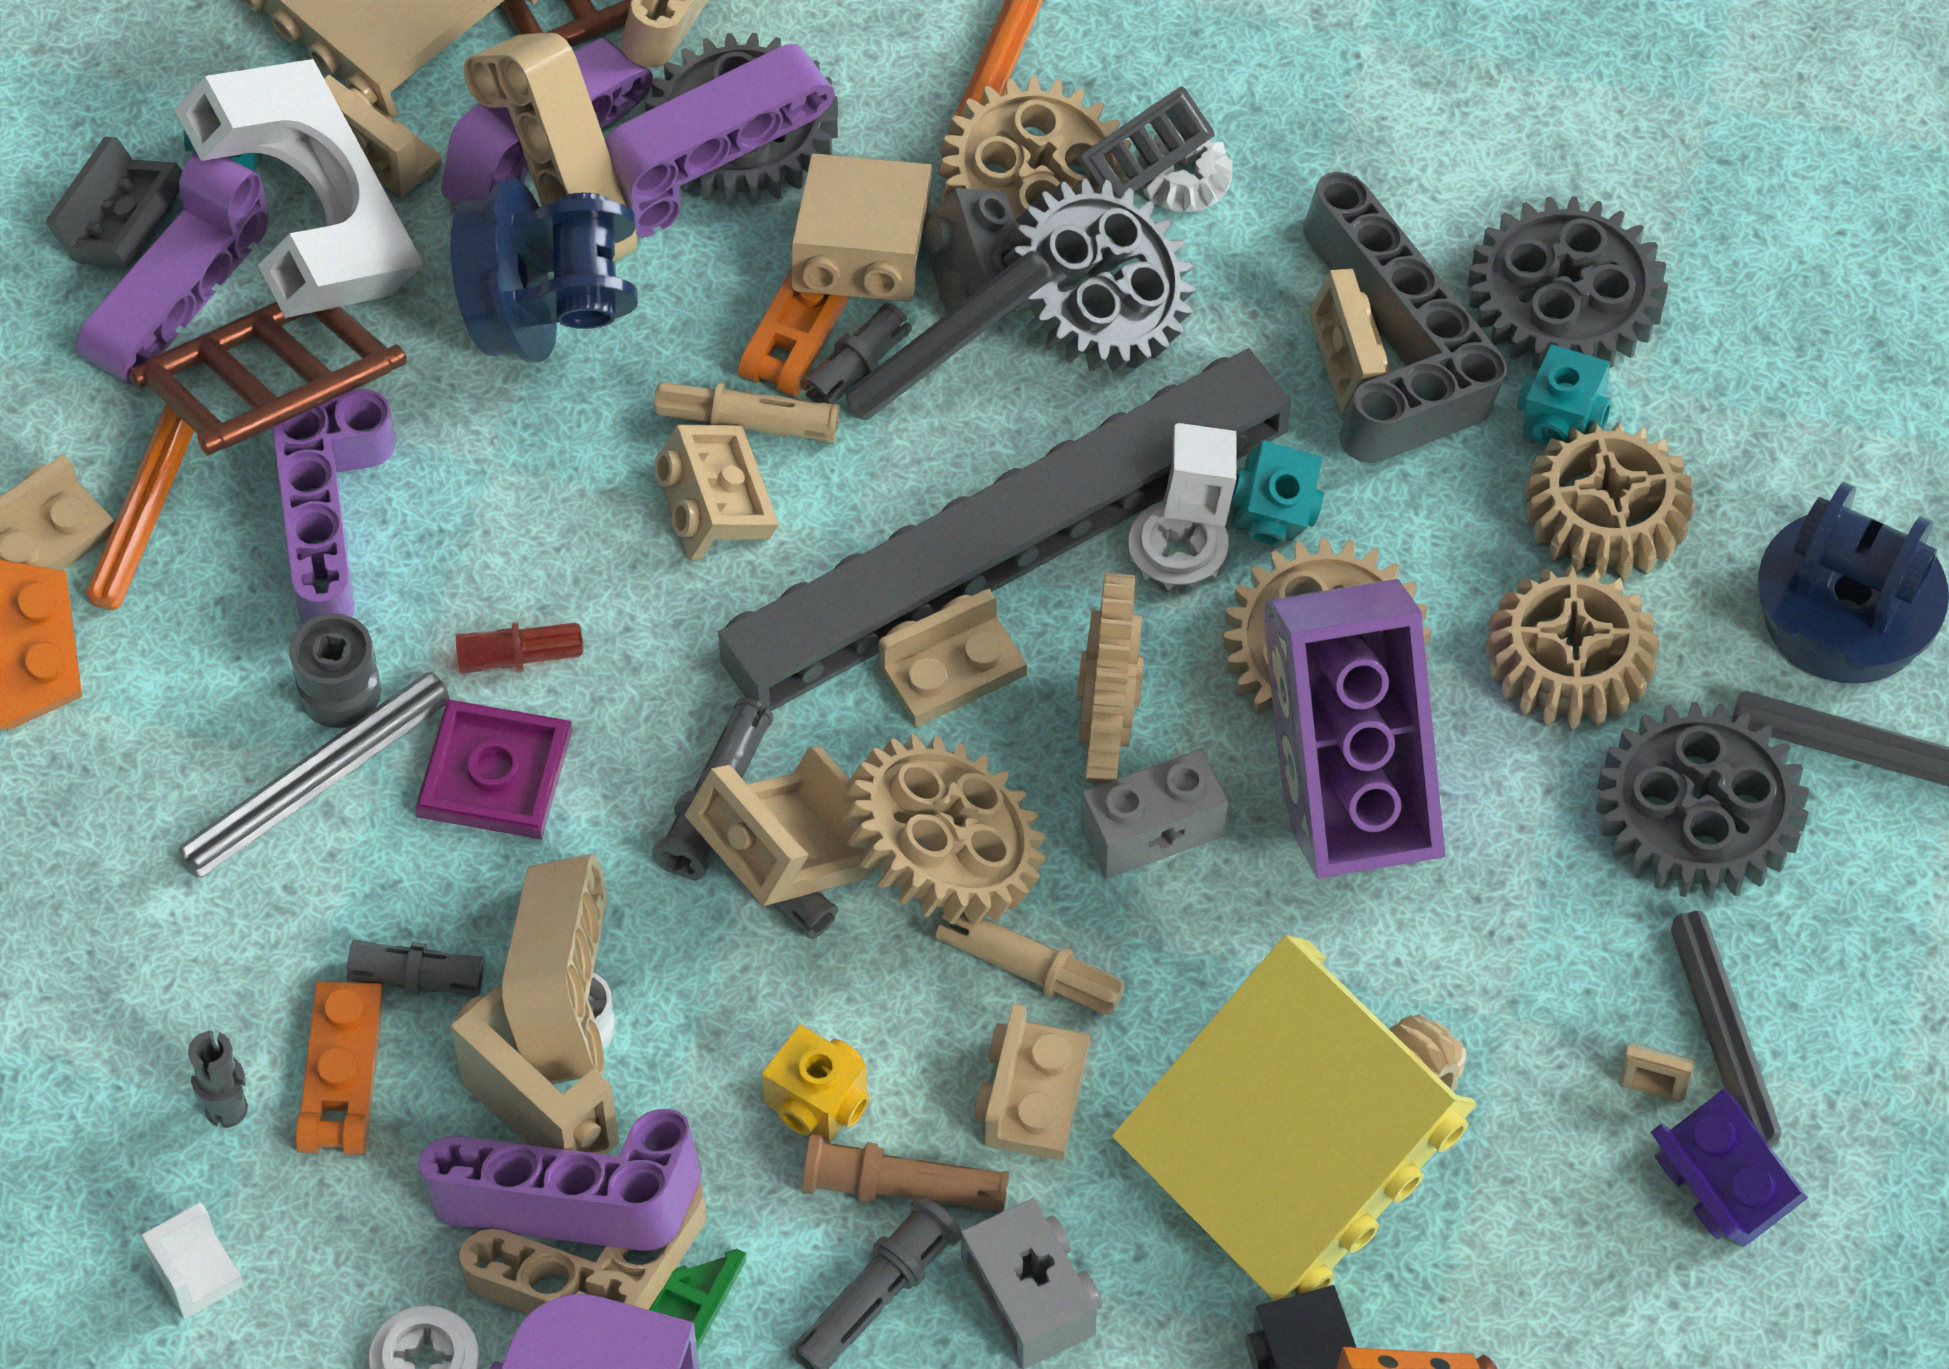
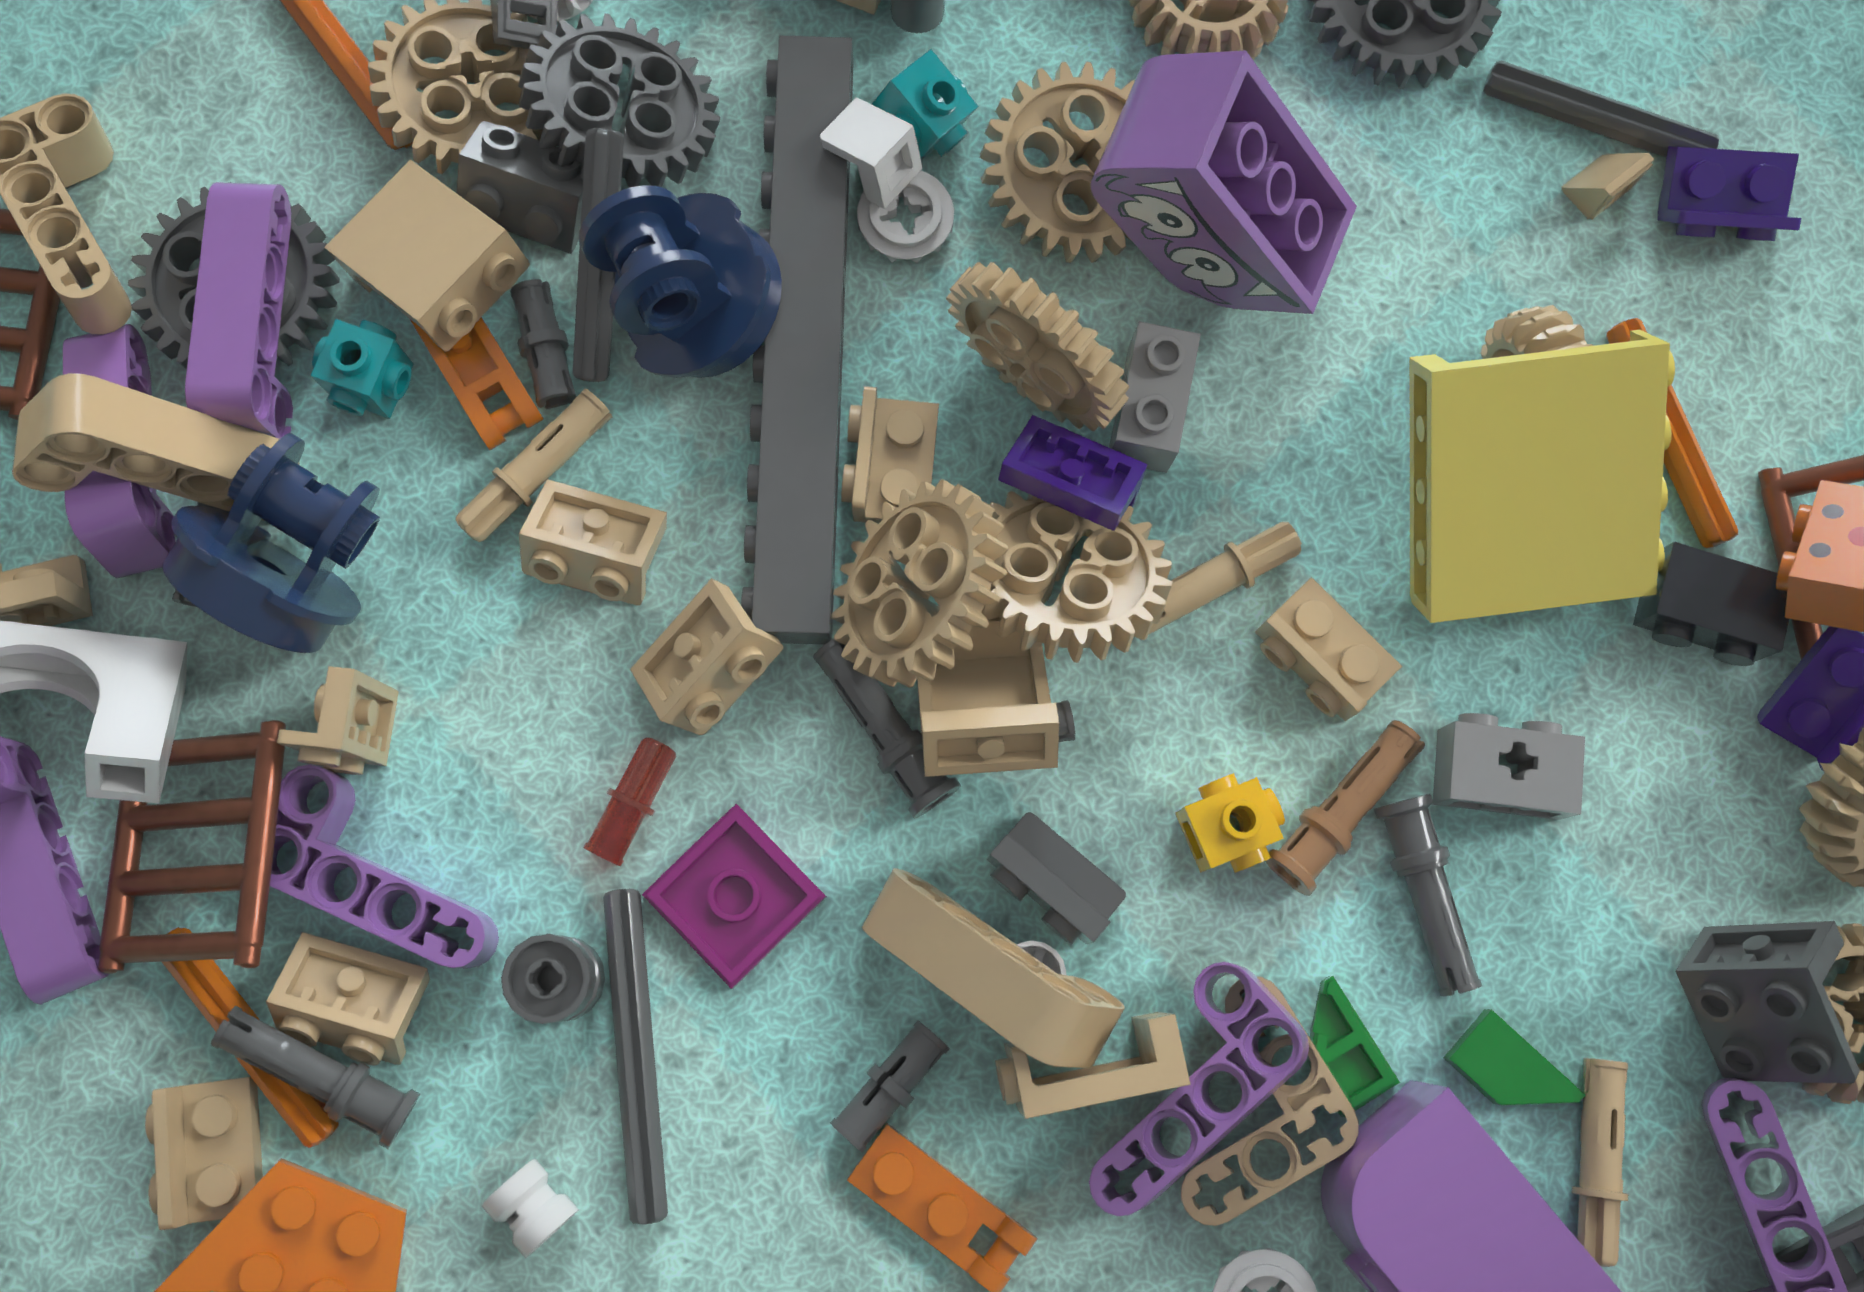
camera: 60 degrees left, 20 degrees up
(143, 767) = (530, 1207): none -> white wheel
(149, 585) = (344, 1089): none -> dark grey pin
(219, 547) = (347, 999): none -> tan bracket
(438, 406) = (353, 723): none -> tan bracket
(670, 623) = (704, 660): none -> tan bracket
(675, 983) = (1058, 878): none -> dark grey bracket
(734, 243) = (362, 368): none -> teal brick
(843, 715) = (948, 553): none -> tan gear
(972, 397) = (688, 278): none -> dark blue piece
(1033, 784) = (1073, 472): none -> dark purple bracket
(1461, 1253) = (1688, 465): none -> orange axle

